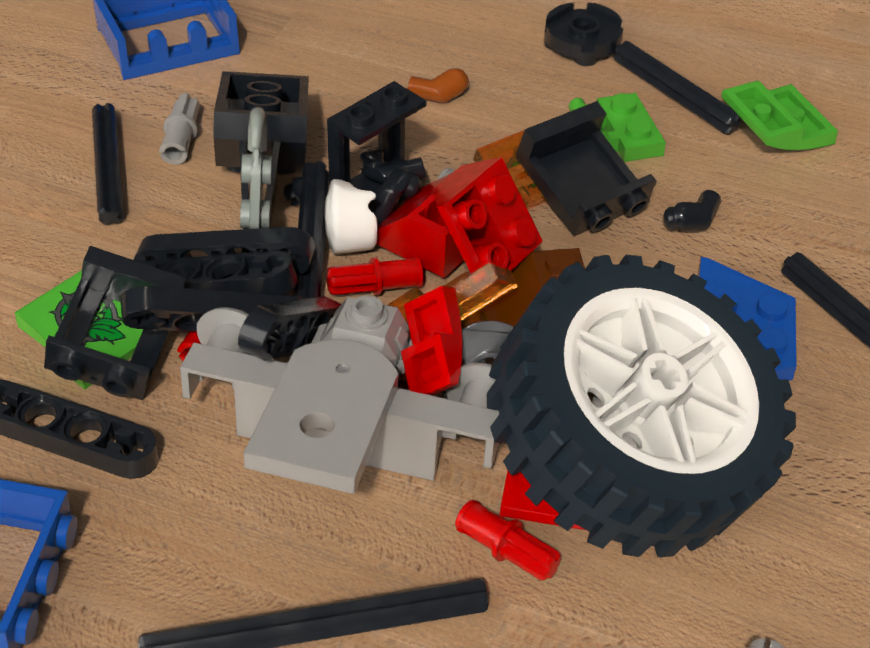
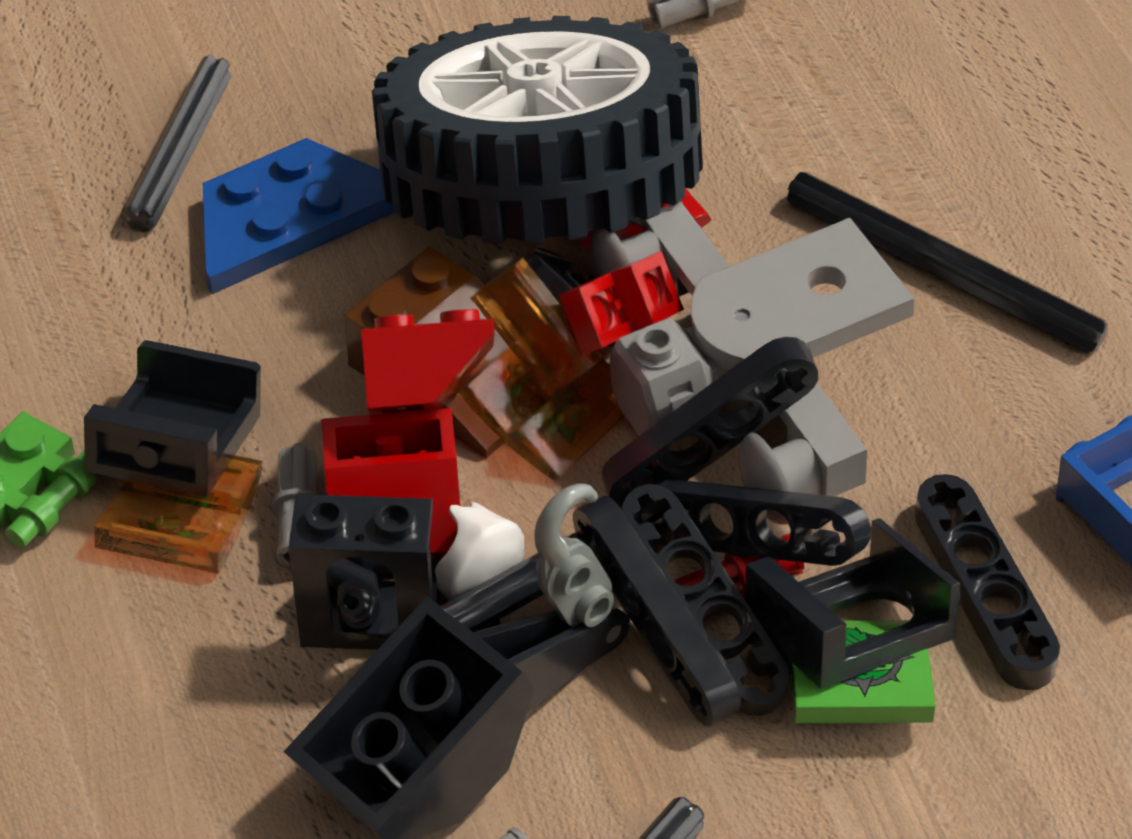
camera: 130 degrees left, 5 degrees up
(374, 276) = (515, 493): red axle -> none
(441, 88) = (108, 686): dark orange arm -> none
(507, 540) = (731, 200): red axle -> none
(693, 216) = (127, 322): black arm -> none

